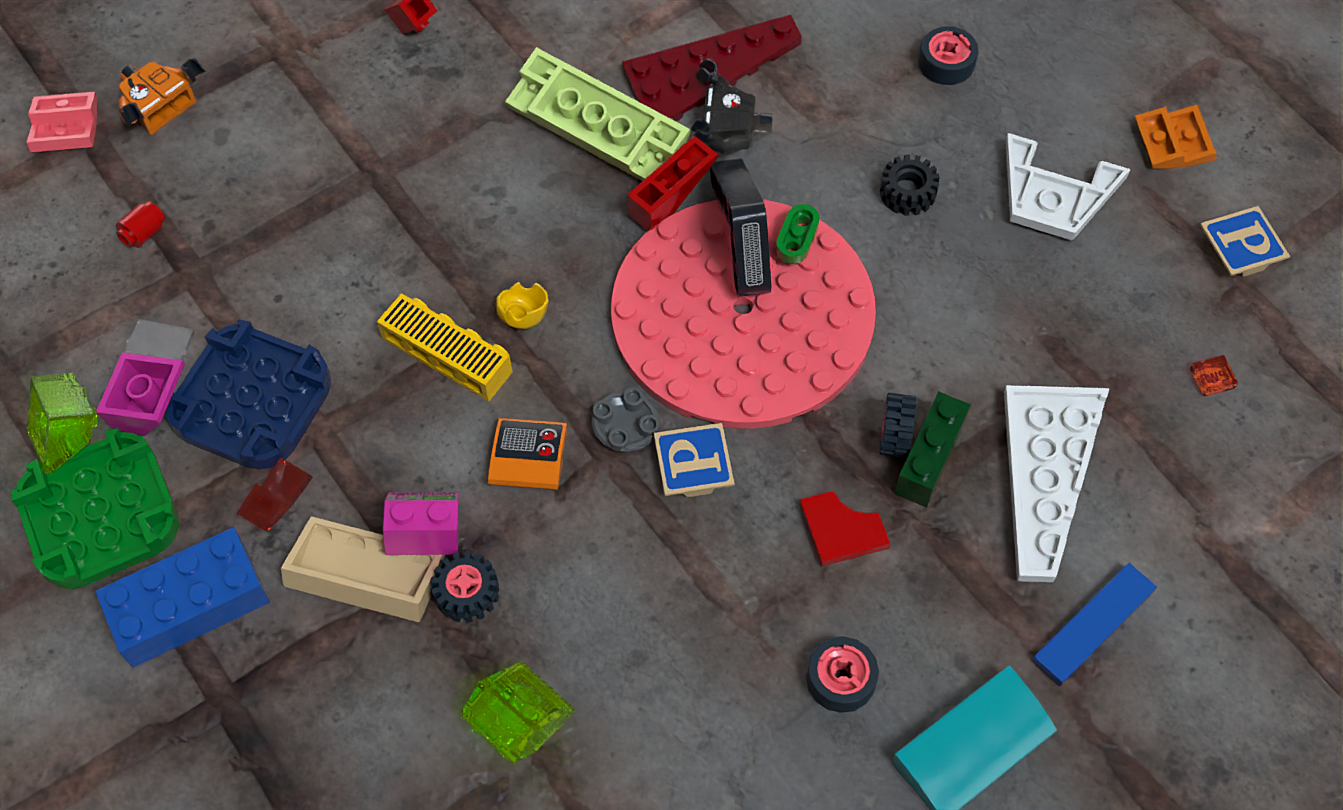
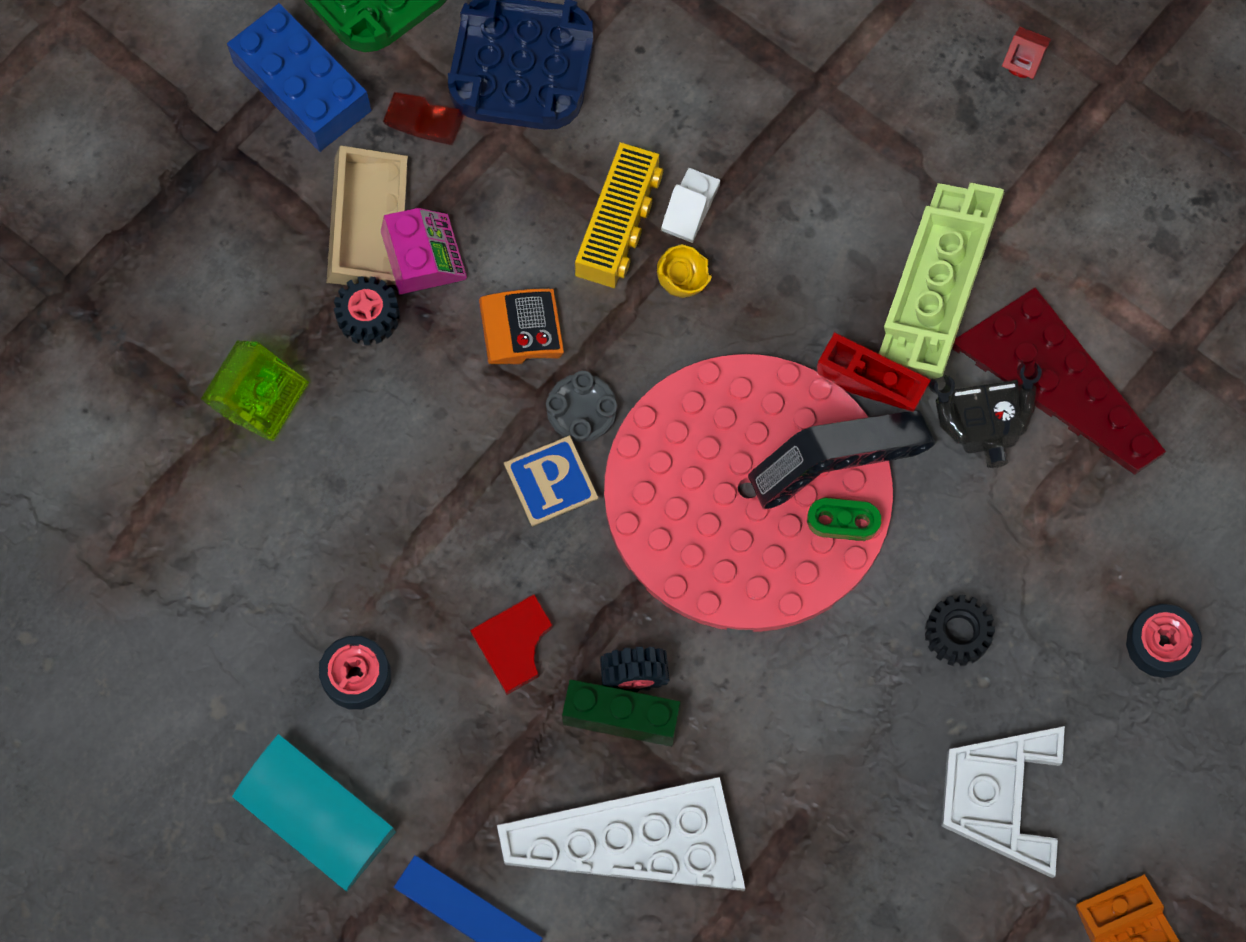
camera: 75 degrees right, 10 degrees up
(454, 289) = (690, 205): none -> white slope

